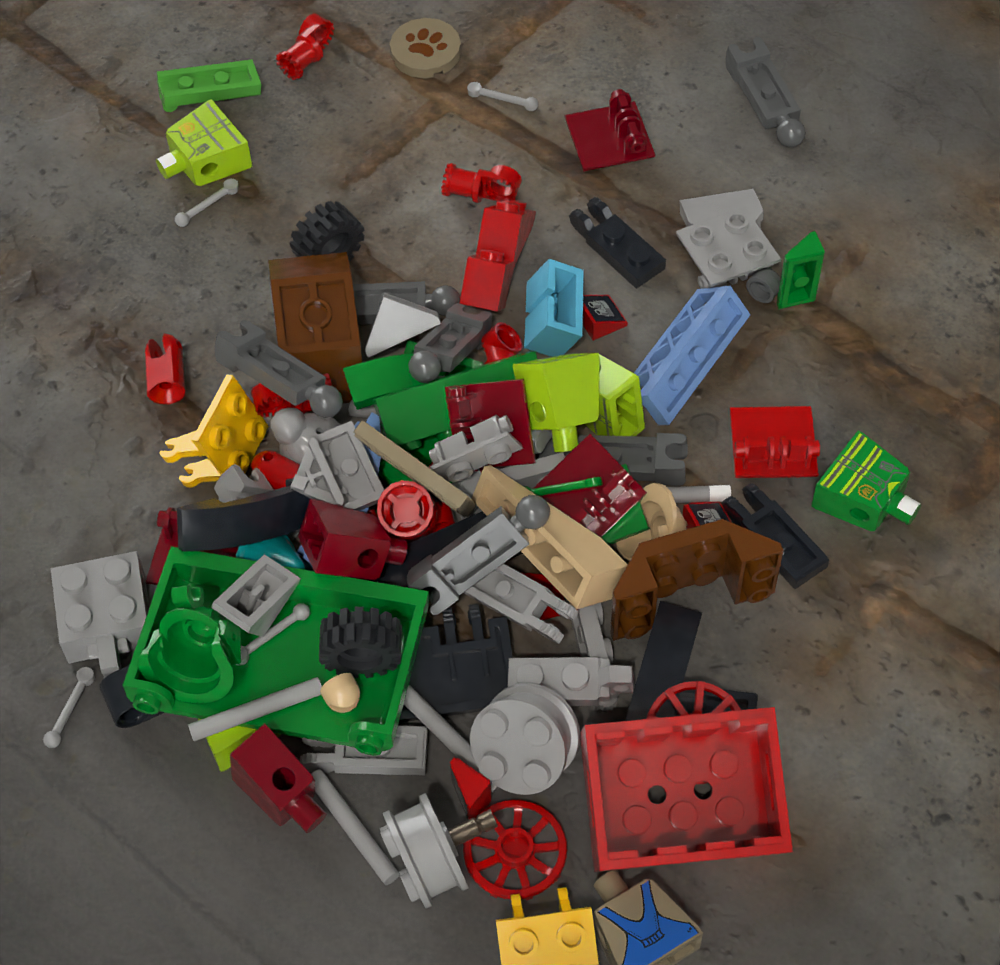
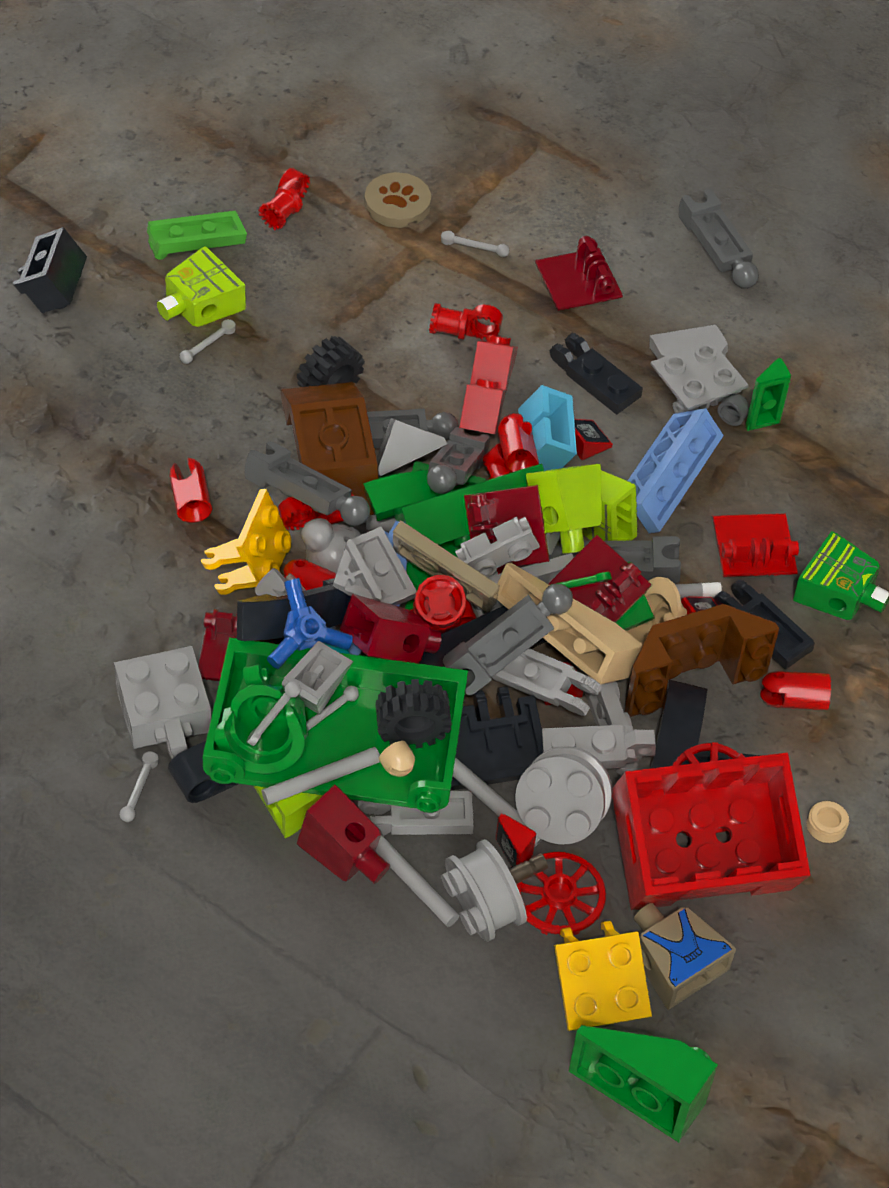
camera: 10 degrees left, 5 degrees down
(50, 125) = (51, 270): none -> black brick
(219, 617) = (292, 689): none -> light grey hinge
(251, 539) = (304, 628): none -> blue piece
(517, 324) = (517, 443): none -> red piece
(804, 615) = (797, 690): none -> red piece
(827, 773) = (827, 821): none -> tan tile

